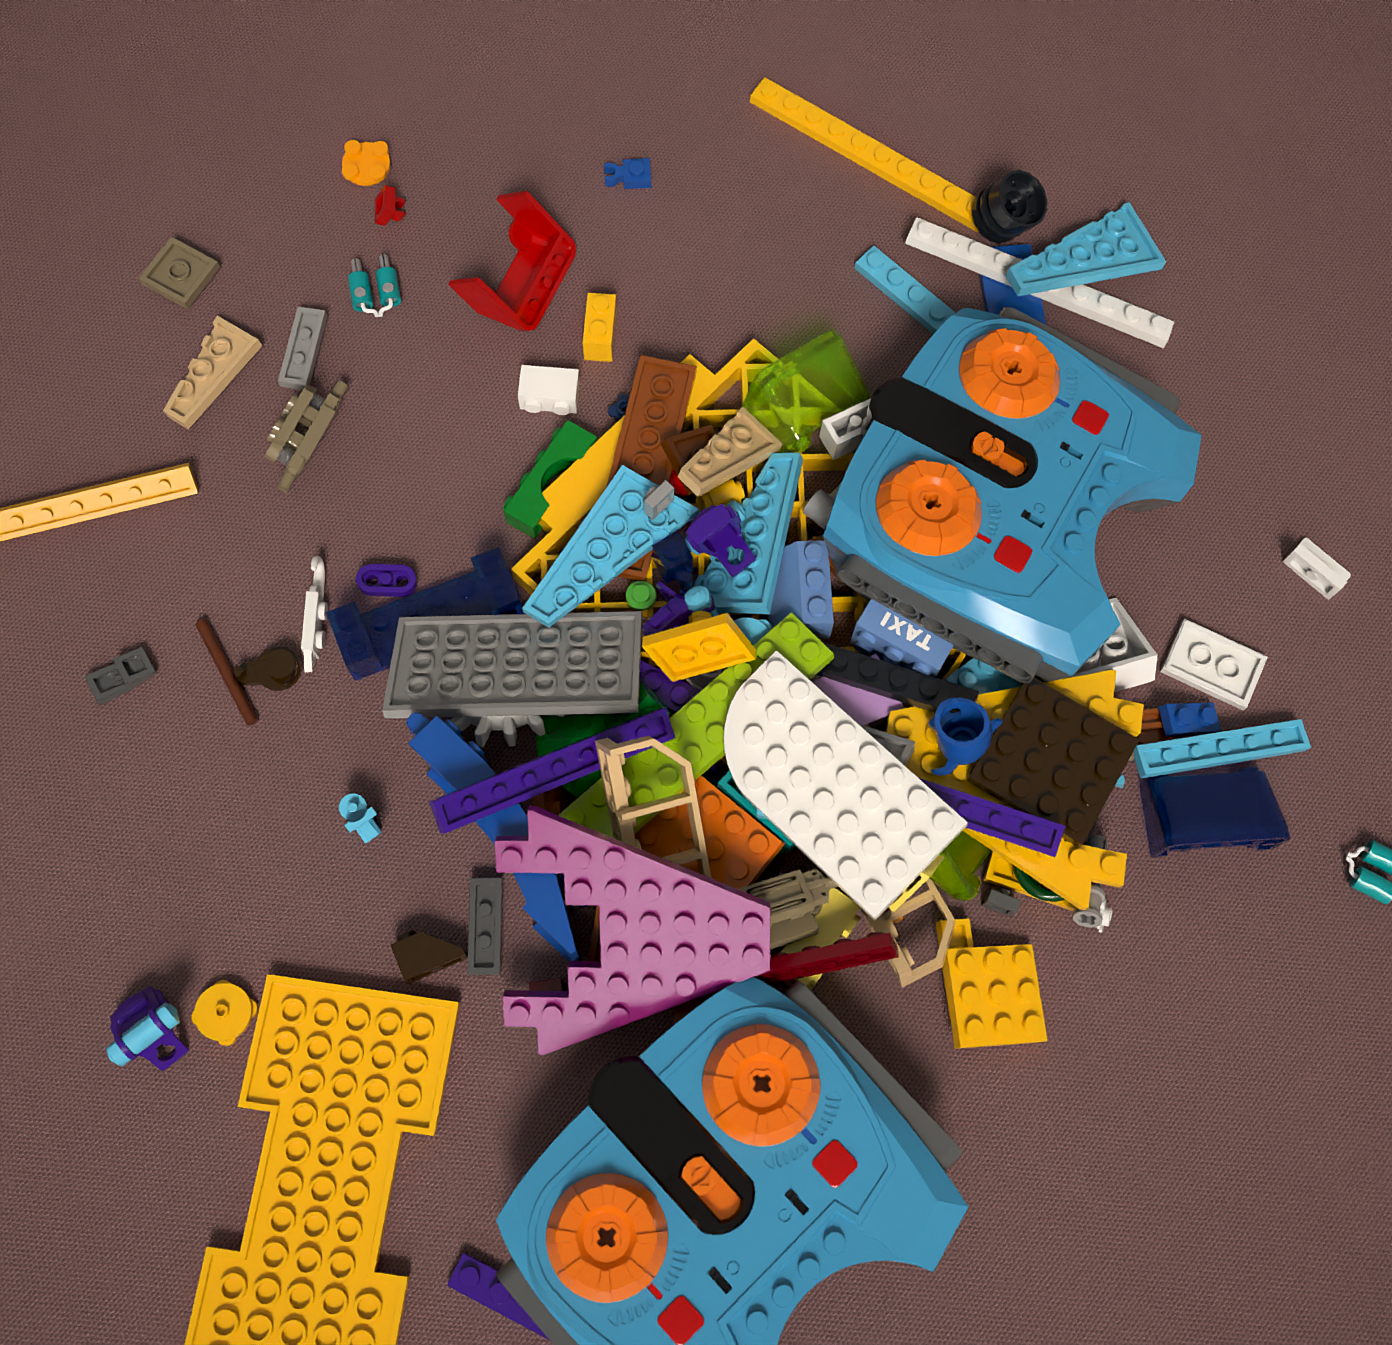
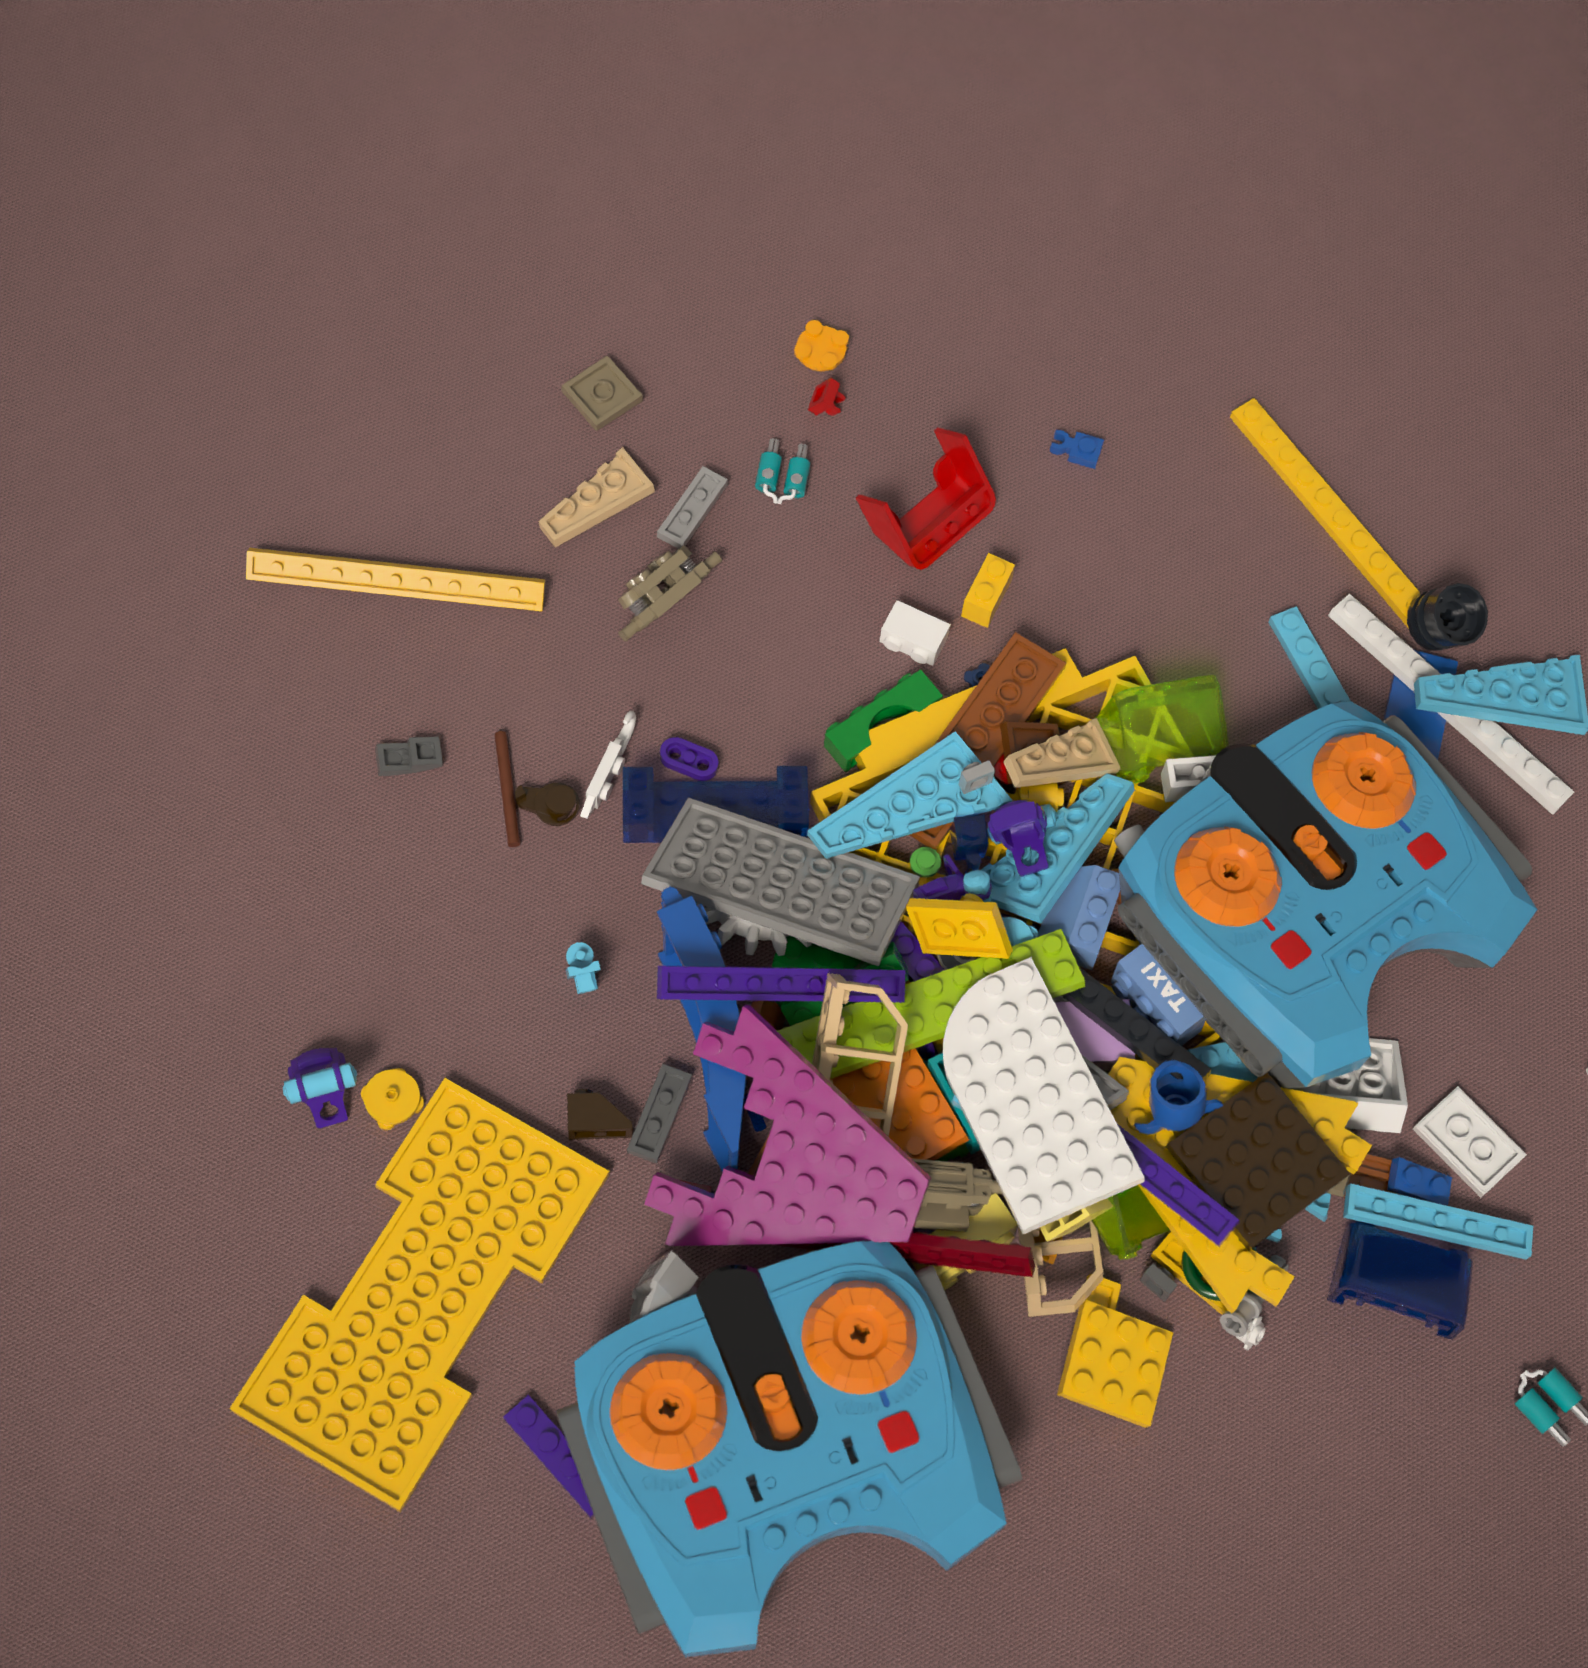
camera: 20 degrees right, 5 degrees down
(552, 1107) = (661, 1285): none -> light grey wedge

